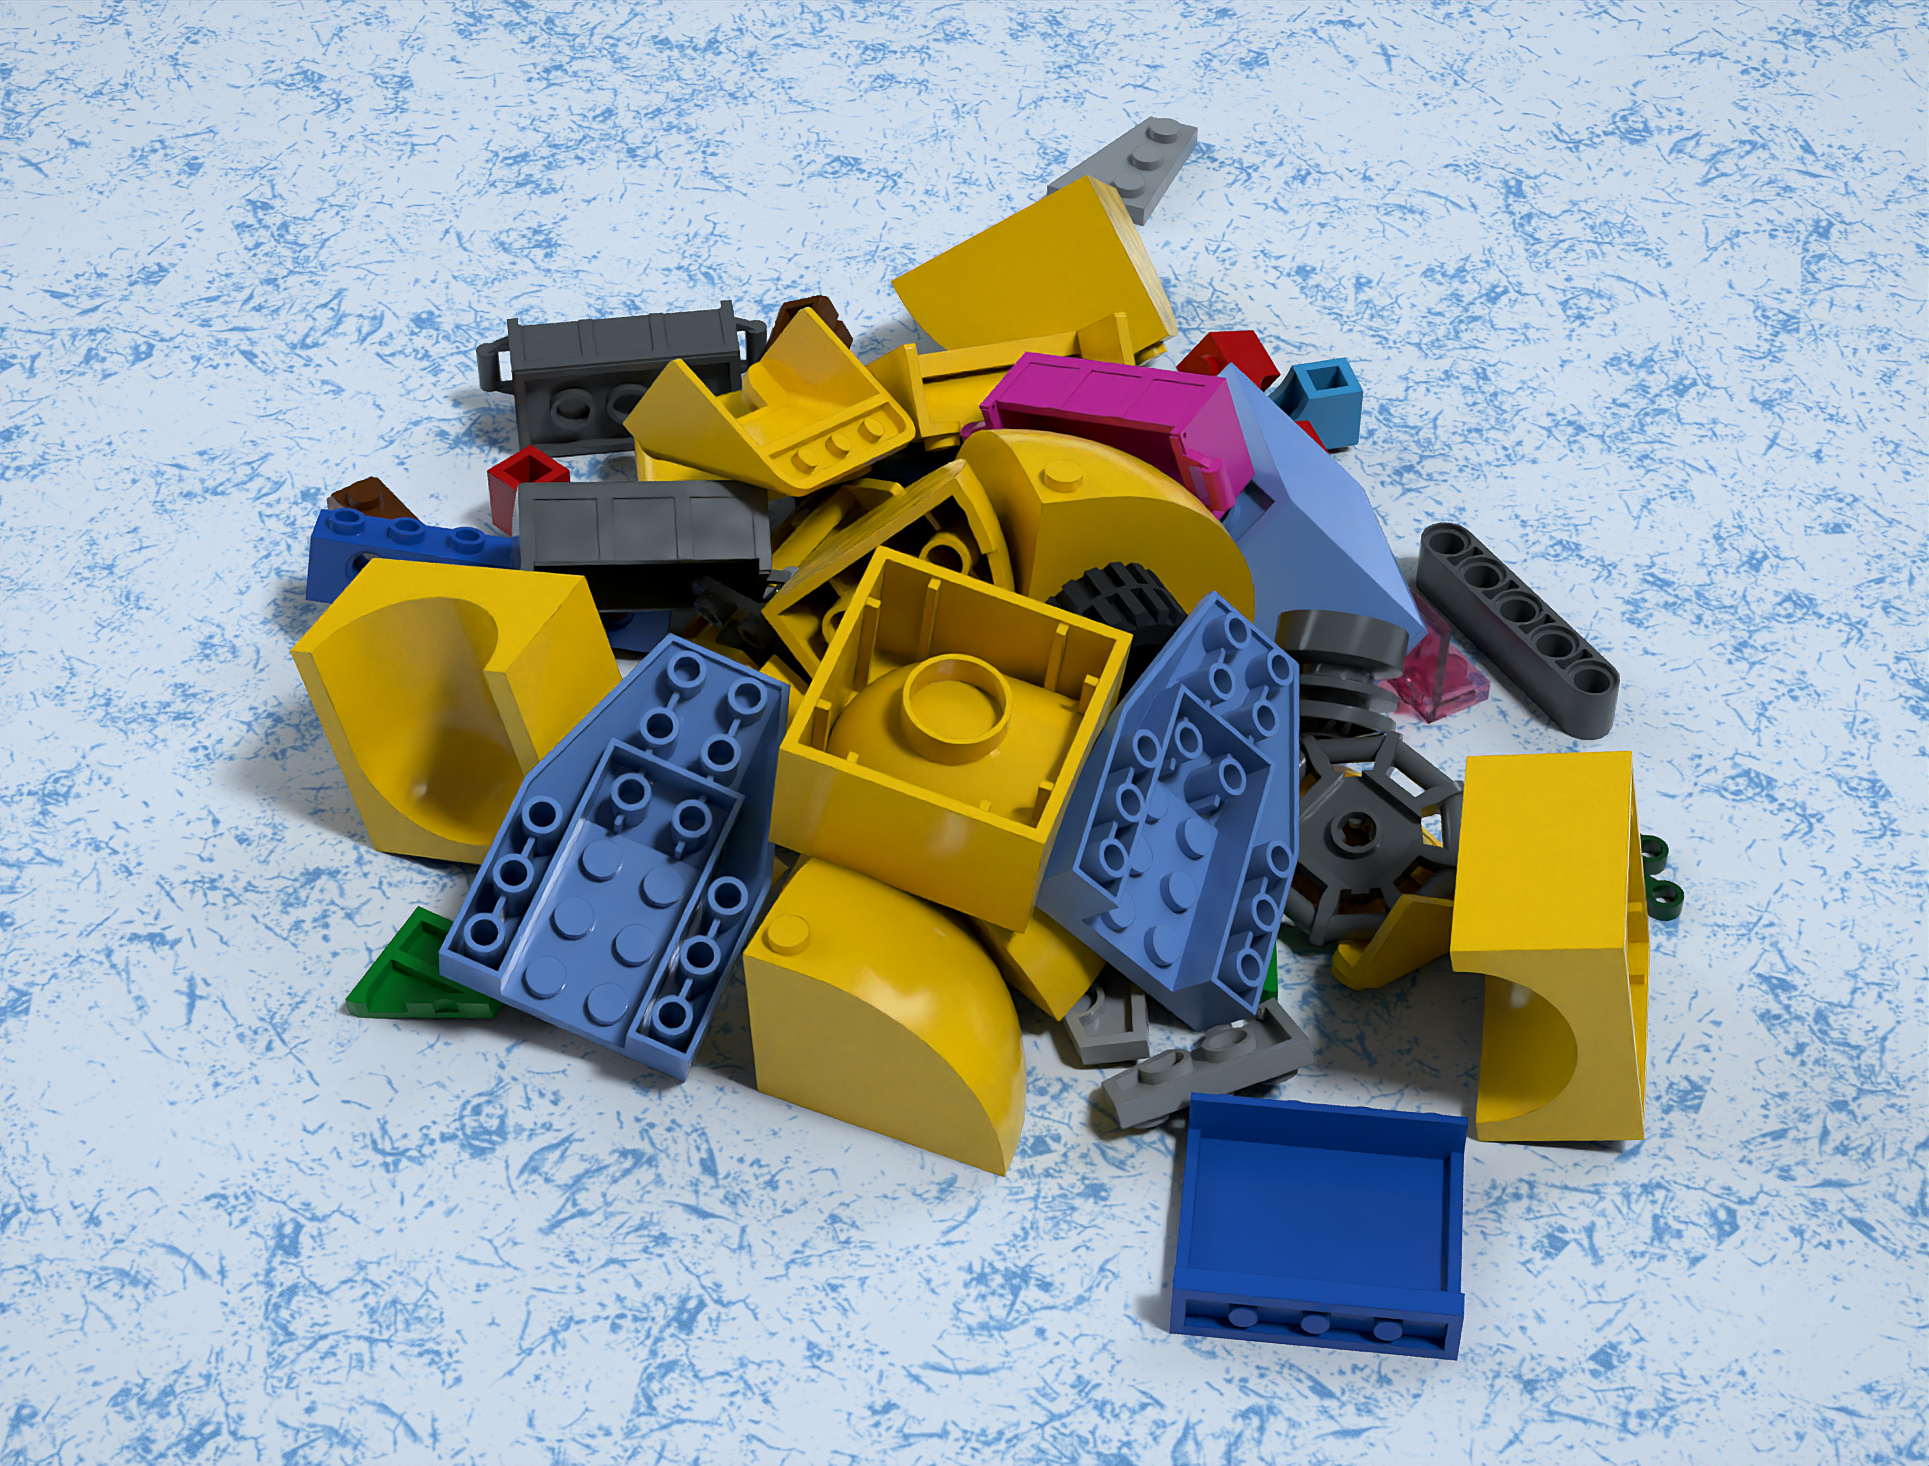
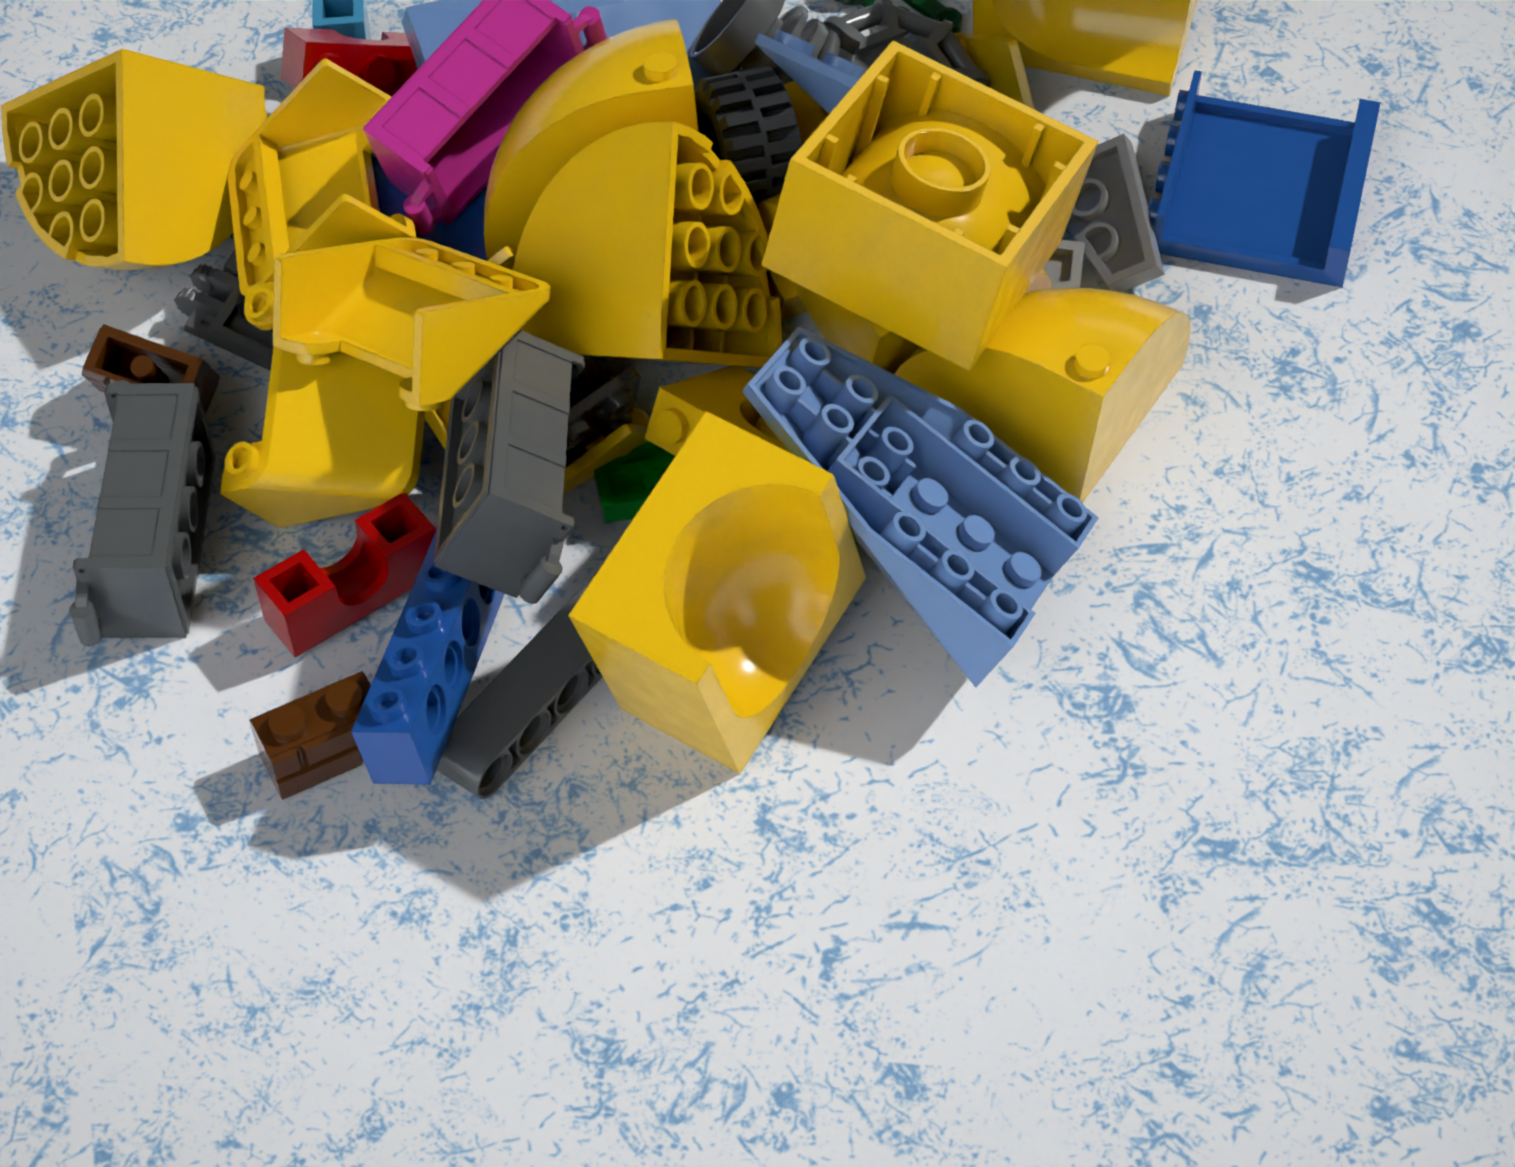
camera: 80 degrees left, 10 degrees up
(408, 981) = (928, 717): green wing -> none

